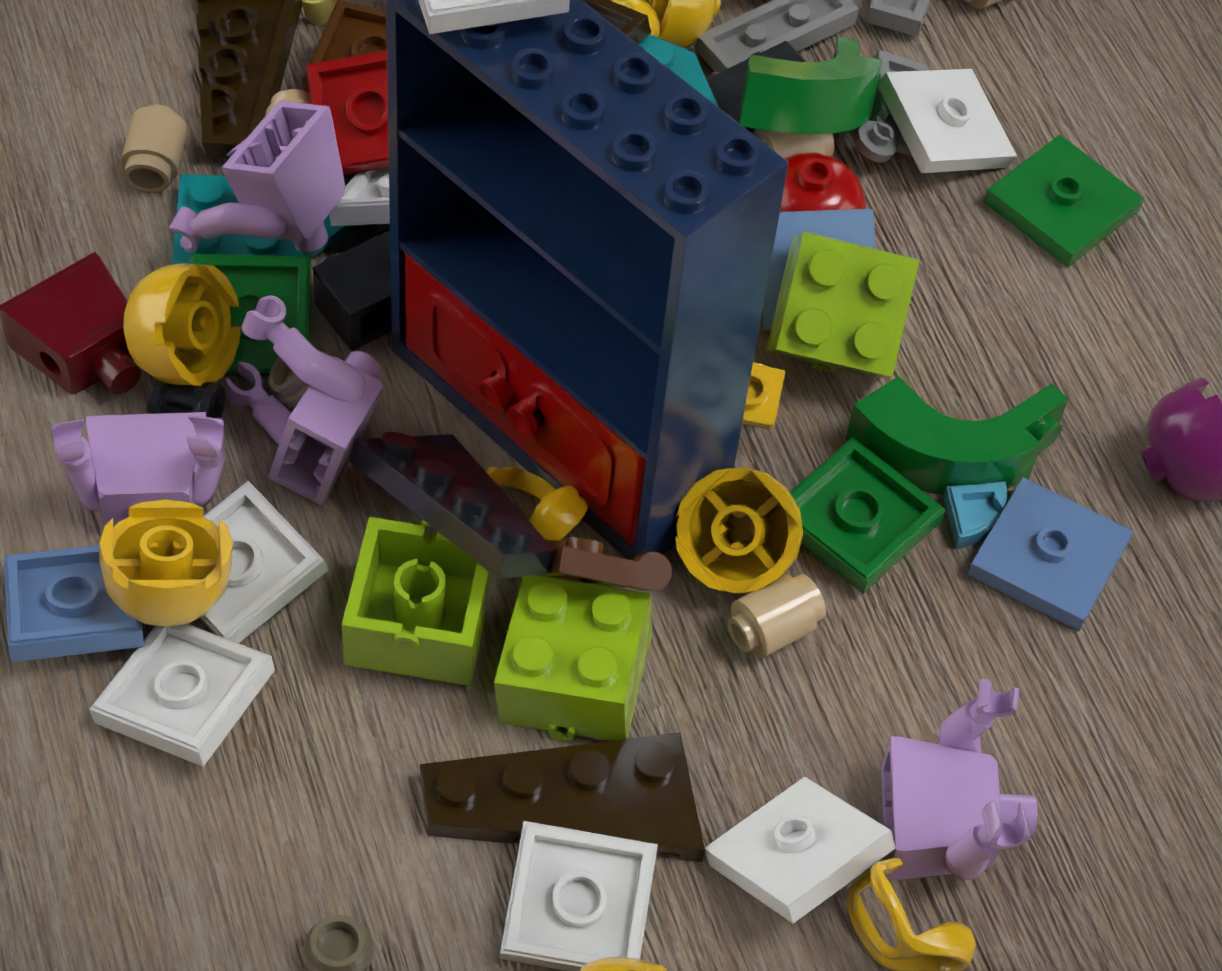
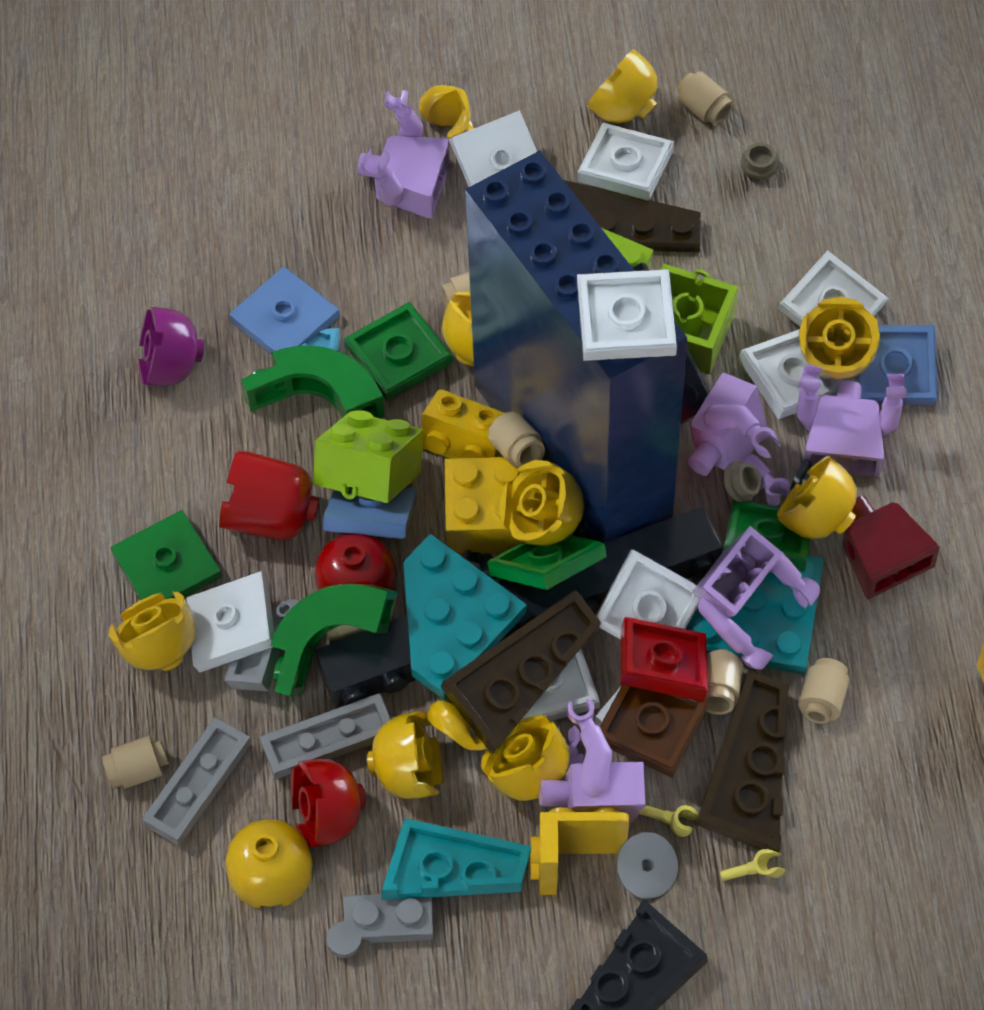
camera: 160 degrees left, 5 degrees up
(964, 252) = (268, 497): none -> red cylinder
(1038, 81) = (155, 632): none -> yellow cylinder

